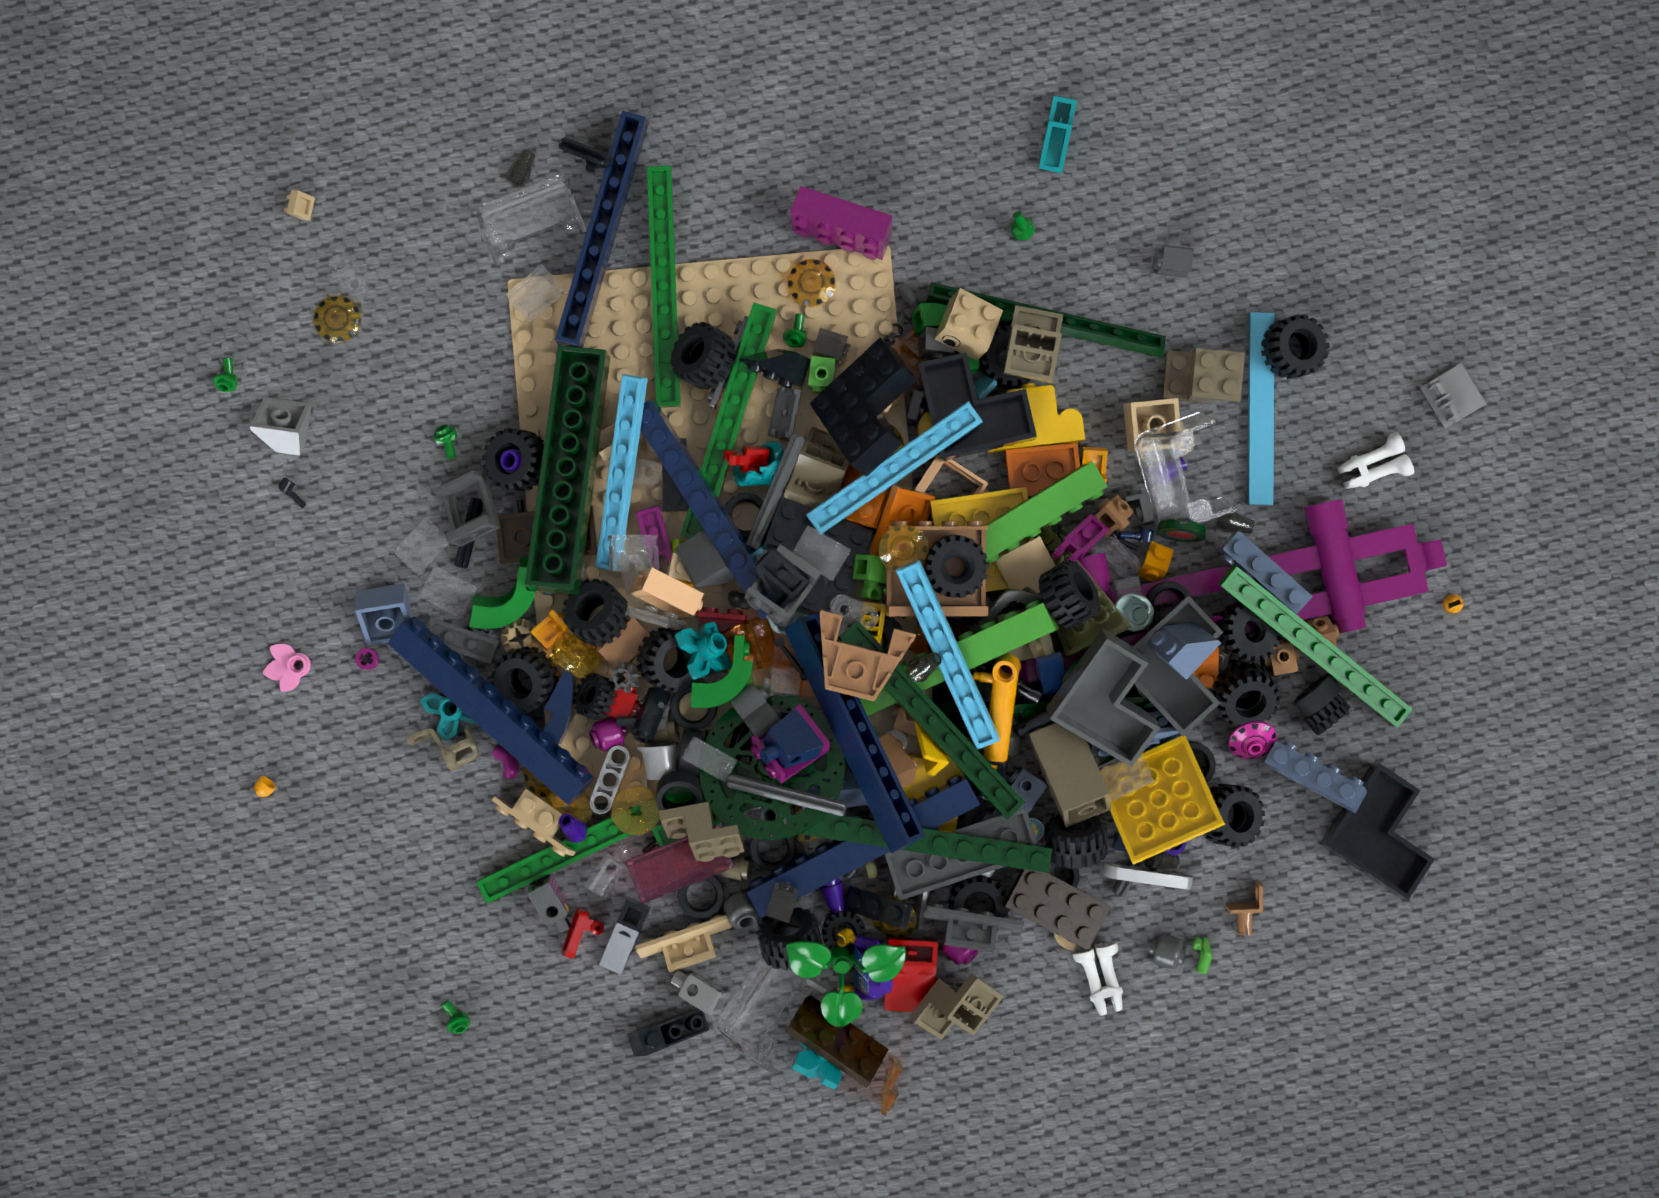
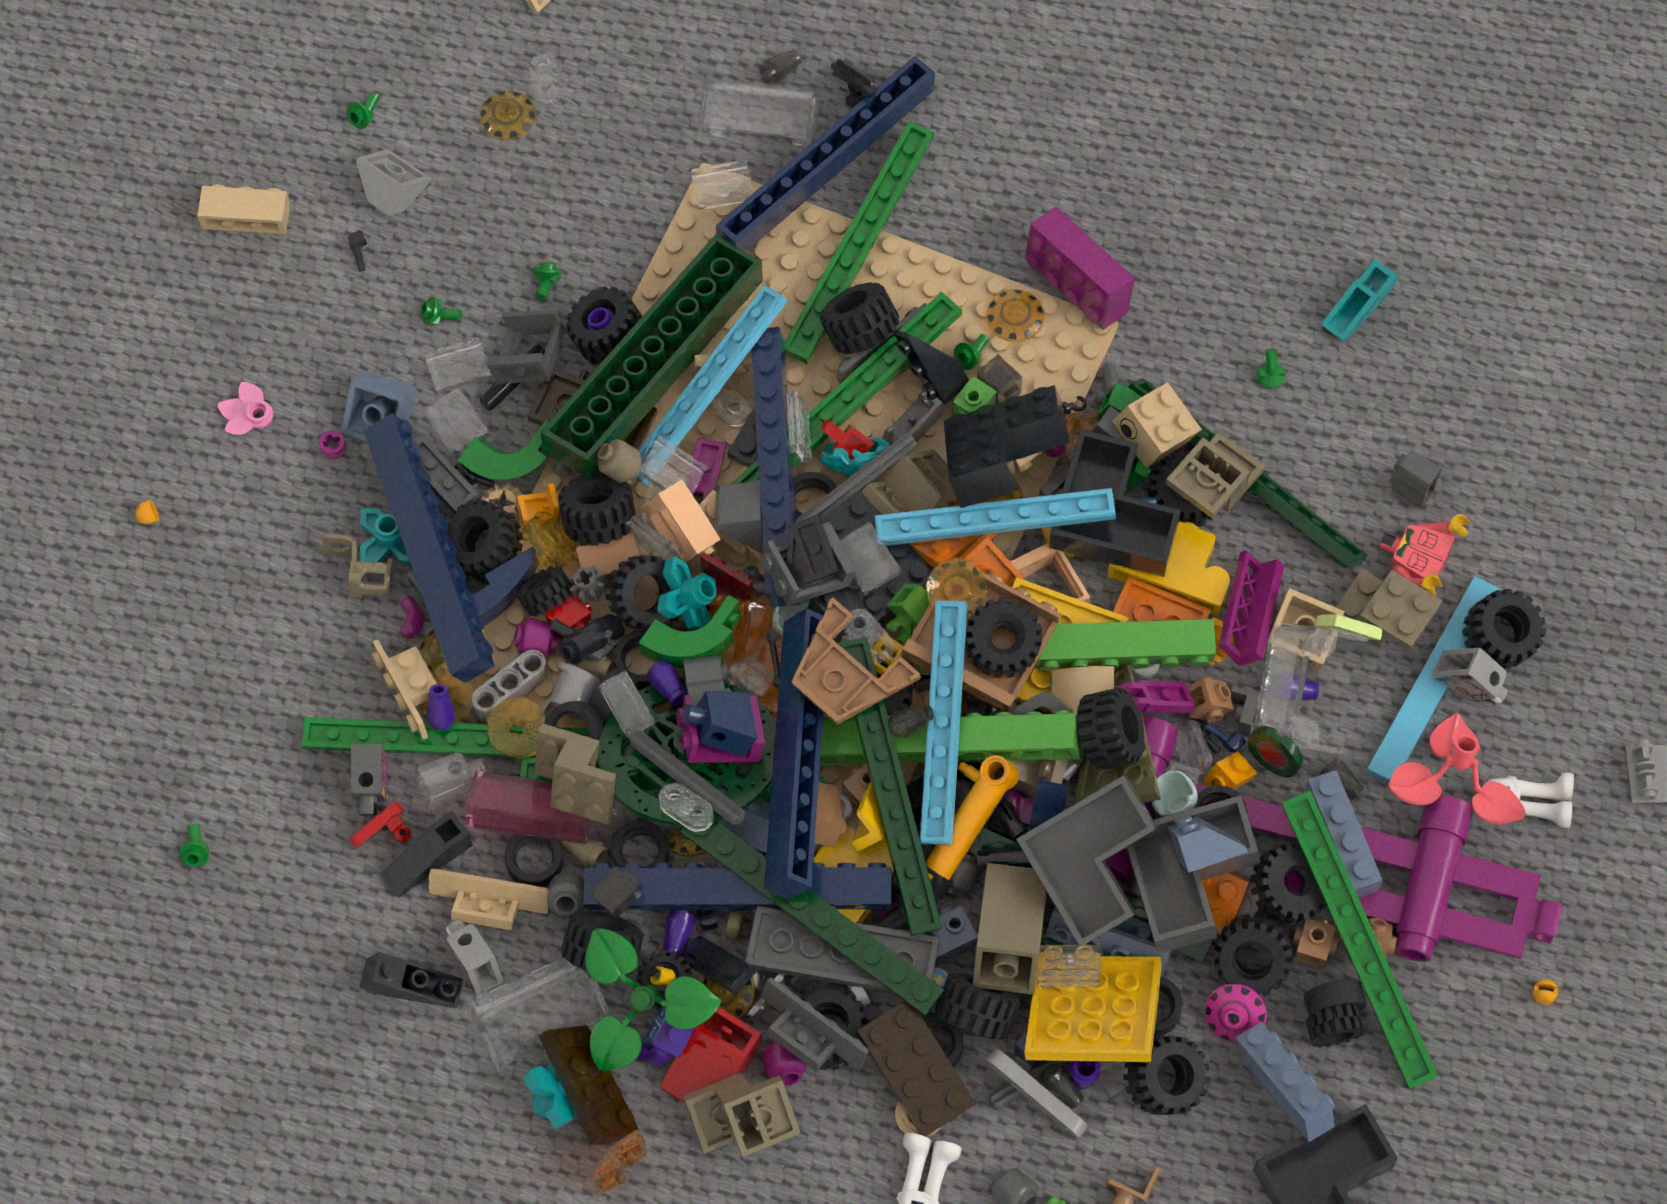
camera: 30 degrees right, 20 degrees down
(186, 507) = (244, 209): none -> tan brick
(378, 513) = (432, 312): none -> green plate
(595, 573) = (619, 461): none -> dark tan head
(709, 470) = (799, 427): none -> clear plate
(725, 721) = (667, 682): none -> dark purple cone
(799, 819) = (684, 805): none -> clear plate
(1112, 429) = (1255, 613): none -> magenta fence
(1189, 410) = (1345, 624): none -> yellowish green tile
(1205, 317) = (1424, 550): none -> coral torso
(1299, 395) = (1471, 674): none -> light grey torso
(1301, 449) = (1460, 746): none -> coral plant

